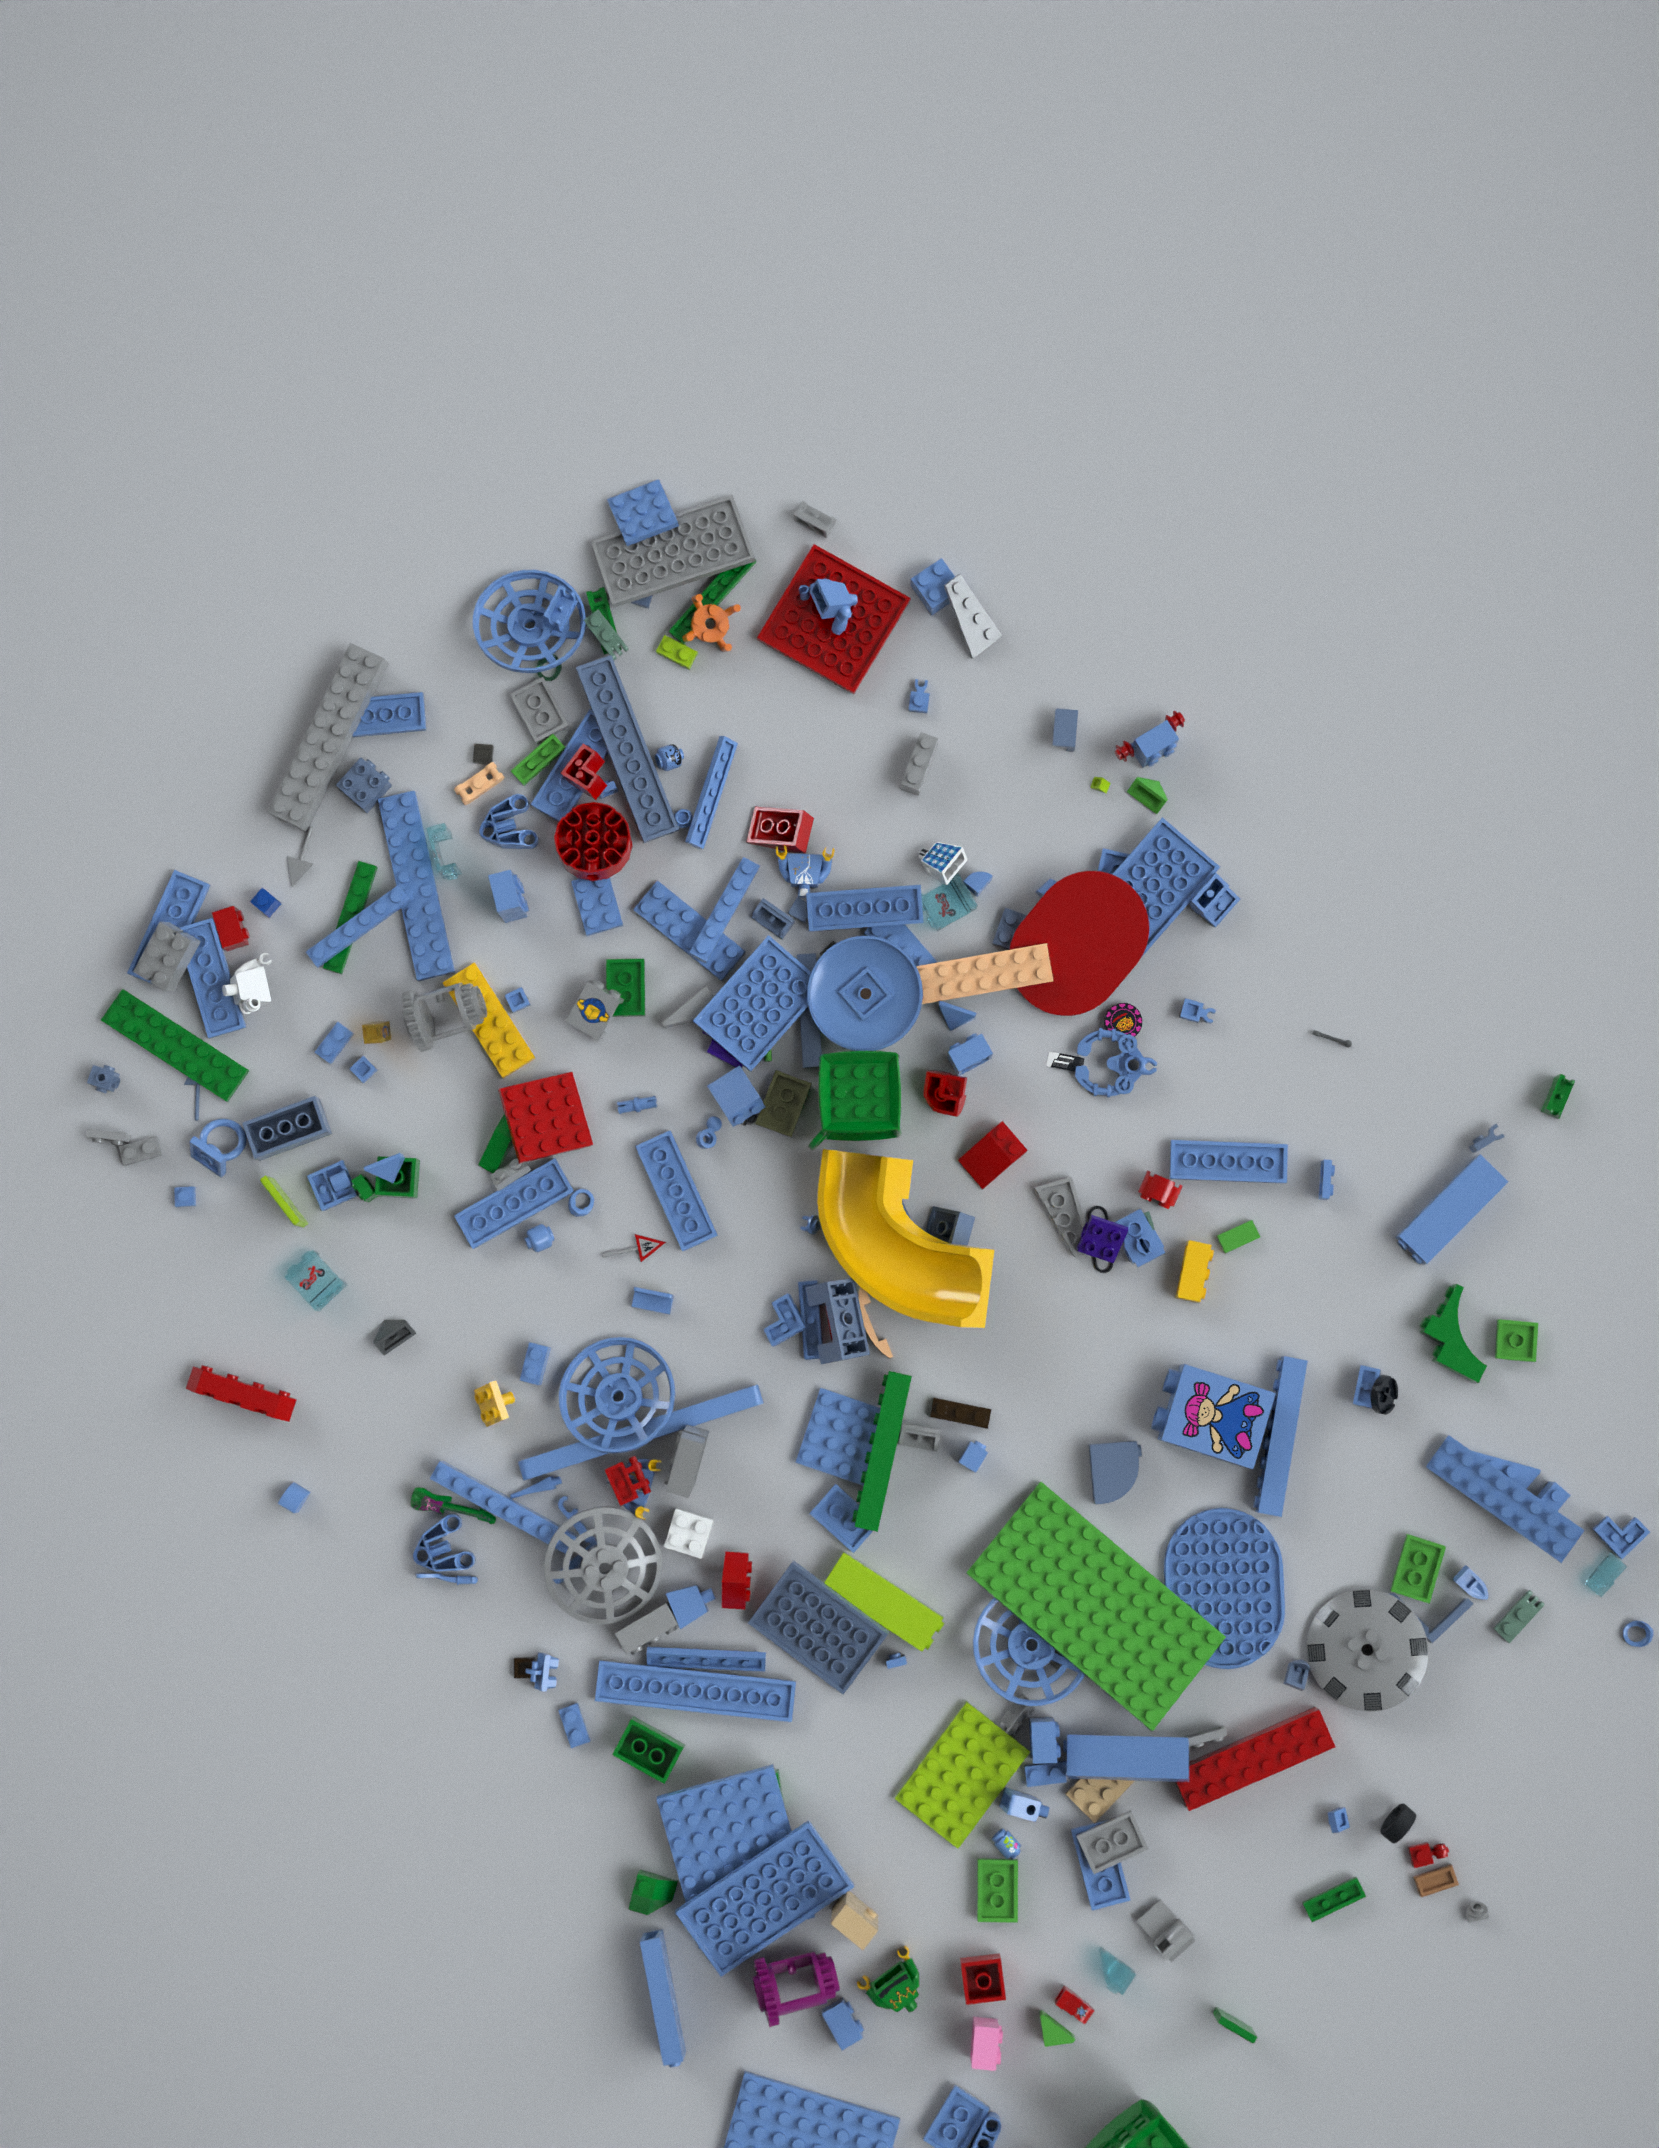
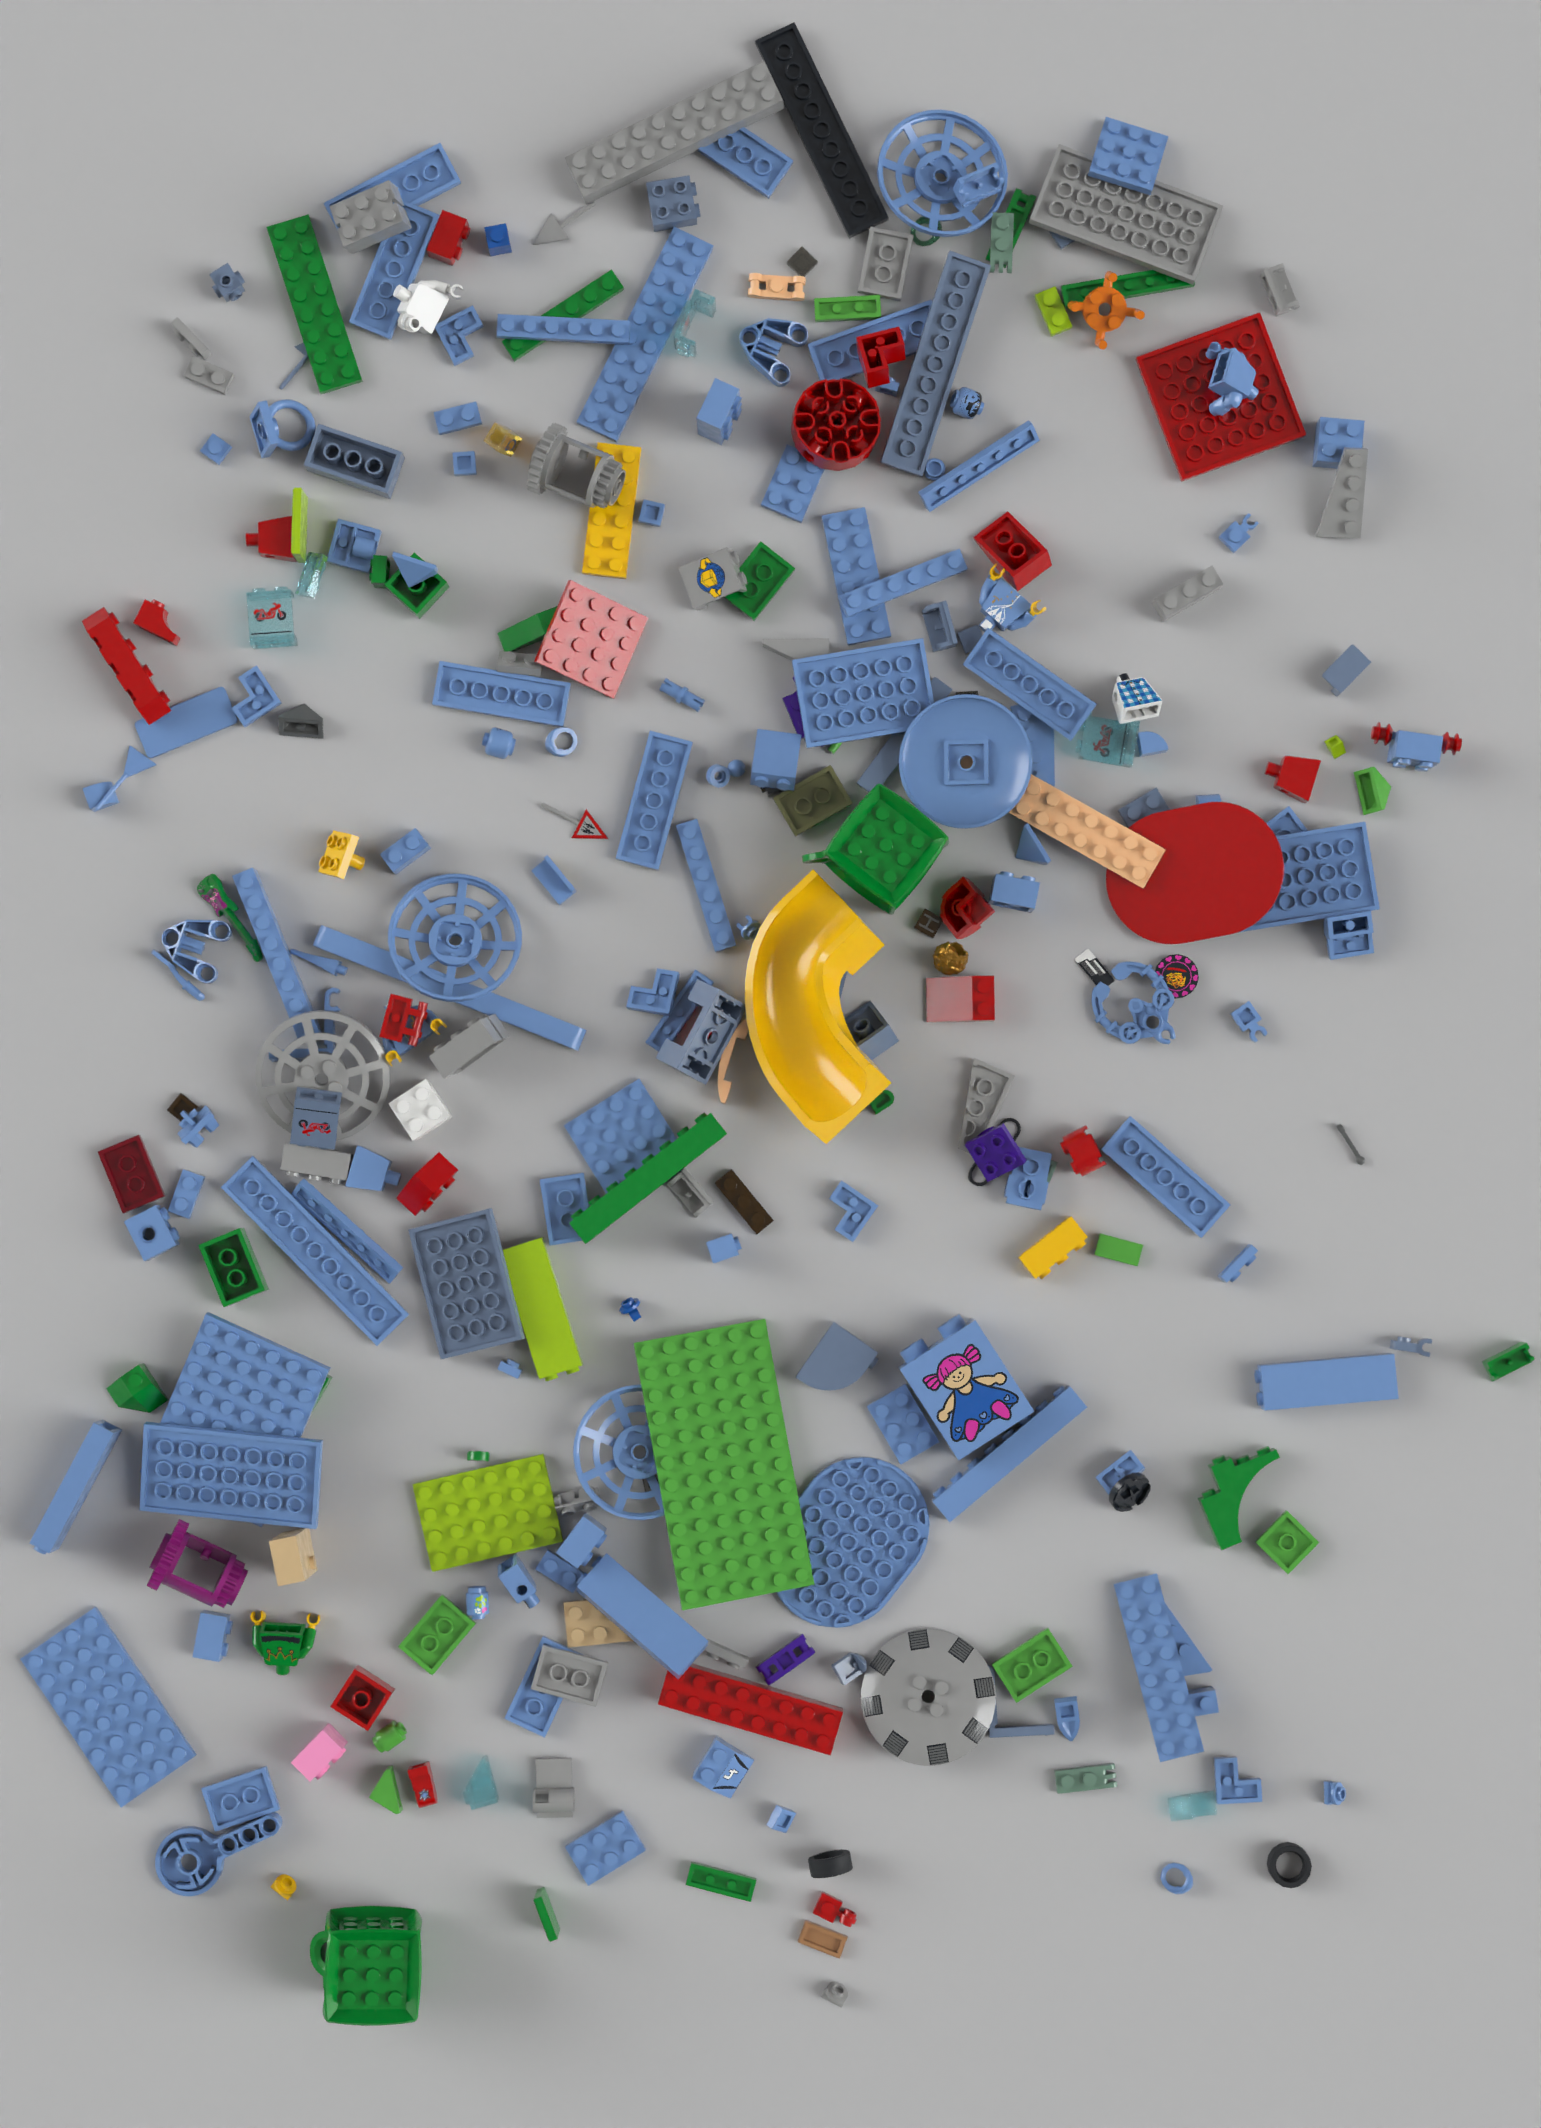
camera: 30 degrees right, 5 degrees up
(234, 1347) = (153, 619): none -> red arch
(273, 1225) = (273, 539): none -> red torso
(285, 988) = (453, 333): none -> medium blue plate
(300, 1456) = (135, 763): none -> medium blue piece
(314, 1398) = (187, 722): none -> medium blue piece
(319, 1228) = (311, 575): none -> clear light blue plate
(352, 1341) = (261, 698): none -> medium blue plate
(426, 657) = (821, 130): none -> black plate
(525, 1743) = (131, 1174): none -> dark red plate
(584, 1768) = (164, 1238): none -> medium blue brick
(622, 1598) = (315, 1118): none -> sand blue panel
(758, 1219) = (706, 885): none -> medium blue plate
(923, 1740) = (478, 1456): none -> green tile
(929, 1122) = (928, 923): none -> dark brown tile
(942, 1549) = (630, 1306): none -> blue plate
(963, 1133) = (950, 958): none -> pearl gold piece
(998, 1267) = (882, 1101): none -> green tile
(1023, 1990) = (389, 1736): none -> bright green brick
(1042, 1354) = (858, 1210): none -> medium blue plate
(1090, 826) = (1294, 776): none -> red torso
(1193, 1475) = (902, 1424): none -> medium blue plate
(1235, 1943) = (605, 1848): none -> medium blue plate
(1249, 1706) = (785, 1659): none -> dark purple plate
(1269, 1818) = (722, 1768): none -> medium blue slope

